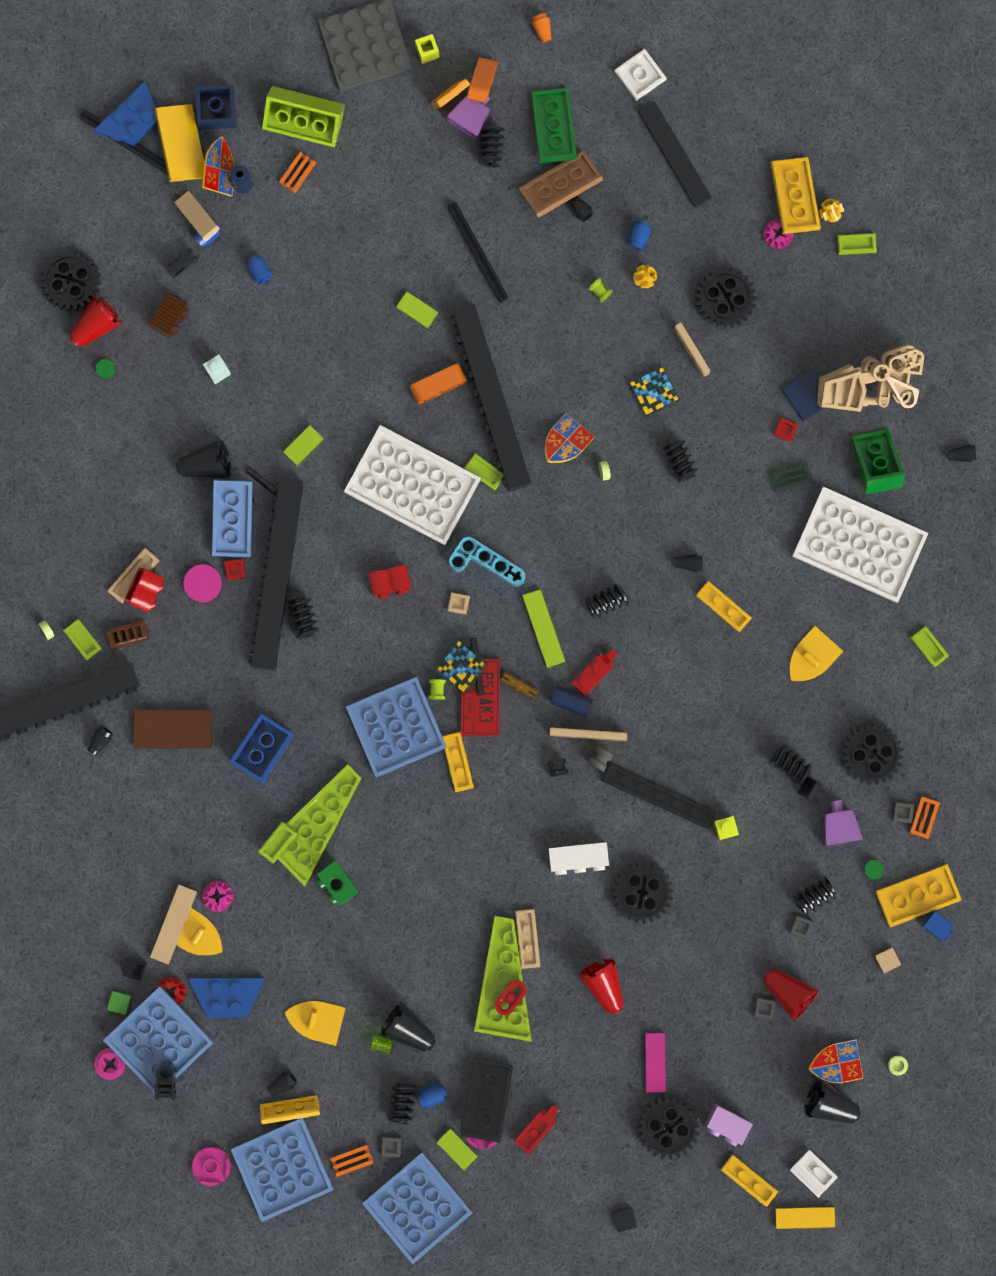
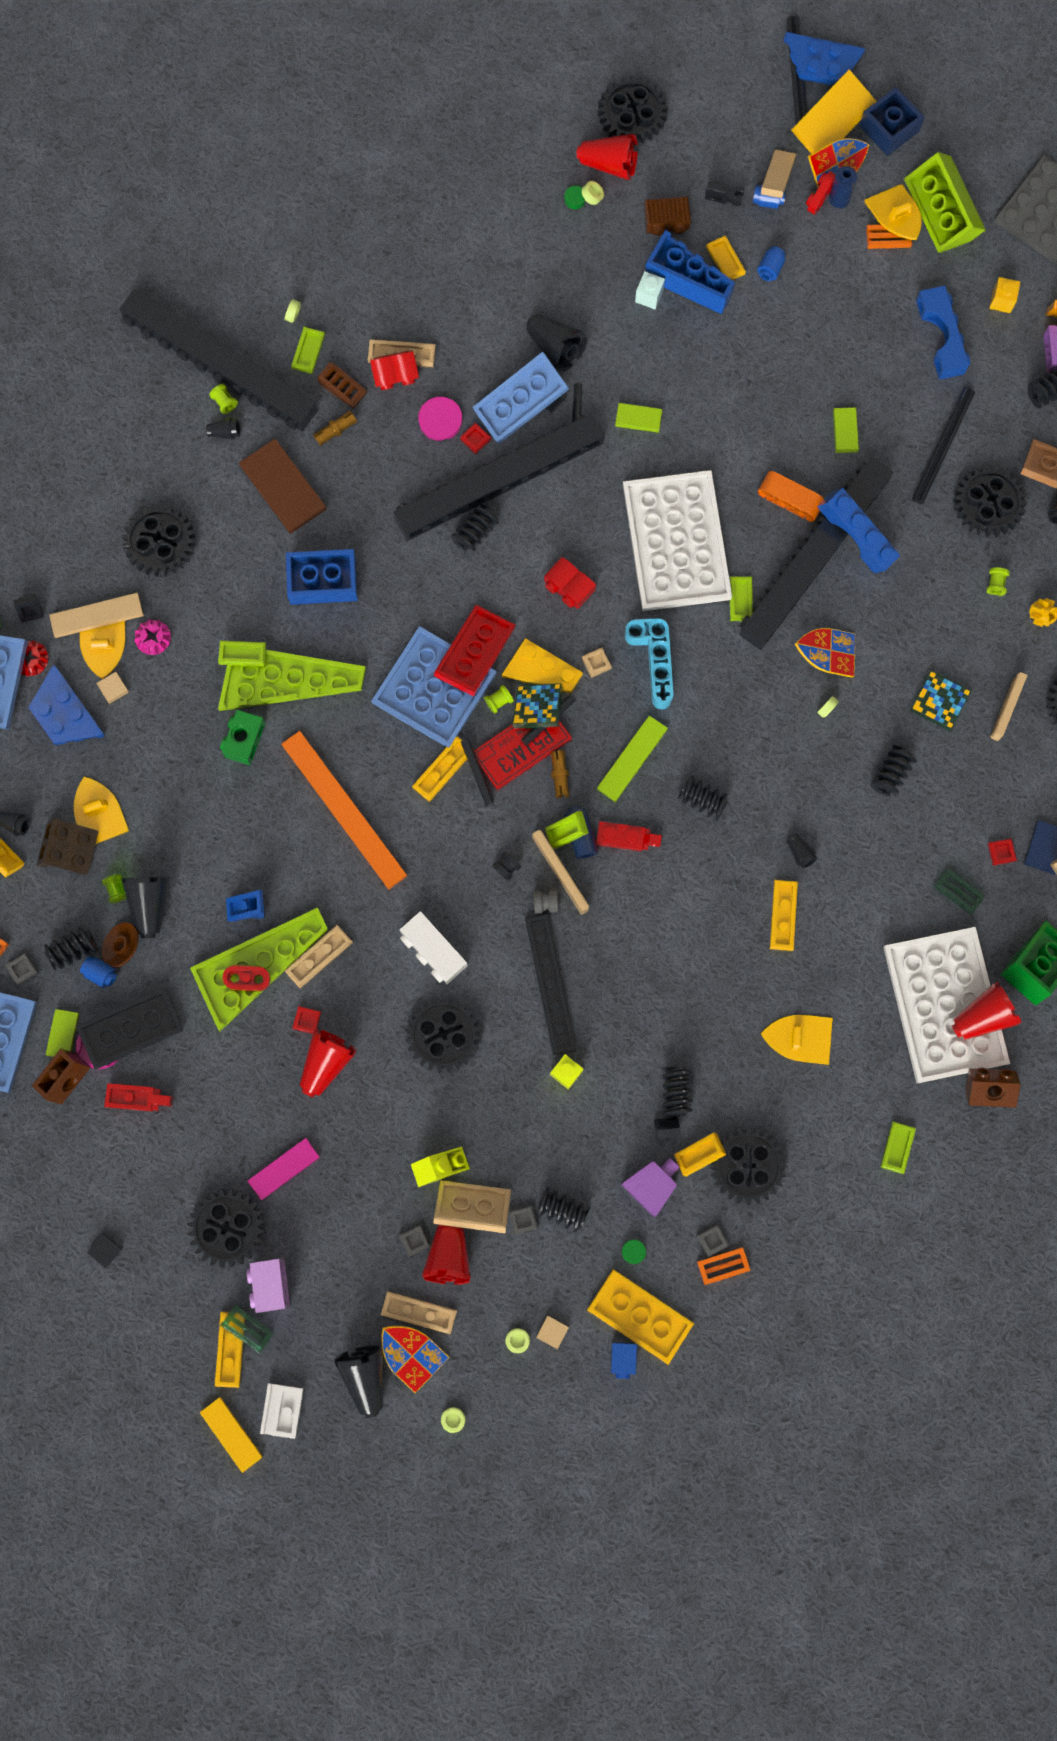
camera: 55 degrees right, 5 degrees down
(76, 725) = (223, 399): none -> lime bush
(112, 354) = (592, 193): none -> yellowish green tile
(140, 828) = (151, 557): none -> black gear
(156, 662) = (335, 428): none -> pearl gold pin
(225, 334) = (689, 275): none -> blue wedge
(229, 188) = (816, 200): none -> red plate
(230, 298) = (725, 258): none -> yellow tile
(234, 949) = (112, 687): none -> tan tile
(284, 153) = (896, 212): none -> yellow shield
(327, 1058) = (67, 846): none -> dark brown bracket
(375, 181) = (936, 307): none -> blue arch
(391, 681) = (474, 650): none -> red tile
(401, 127) = (1004, 295): none -> yellow brick
(418, 1069) = (120, 944): none -> reddish brown dish
(435, 644) = (539, 666): none -> yellow wing
(437, 850) = (344, 810): none -> orange tile
(459, 964) = (245, 906): none -> blue slope
(477, 740) = (477, 772): none -> black bar
(486, 359) = (845, 513): none -> blue arch
(488, 1169) = (61, 1076): none -> reddish brown brick
(537, 268) = (1008, 494): none -> black gear
(563, 710) = (566, 830): none -> lime tile
(565, 977) = (306, 1020): none -> red tile
(728, 957) = (440, 1166): none -> neon yellow slope
(730, 1165) = (230, 1317): none -> clear green tile
(770, 954) = (472, 1206): none -> tan tile
(813, 1039) = (418, 1312): none -> tan tile
(842, 780) = (700, 1154): none -> yellow tile
(877, 987) = (517, 1340): none -> yellowish green tile
(887, 525) = (986, 1014): none -> red cone
(936, 556) = (1003, 1094): none -> reddish brown brick

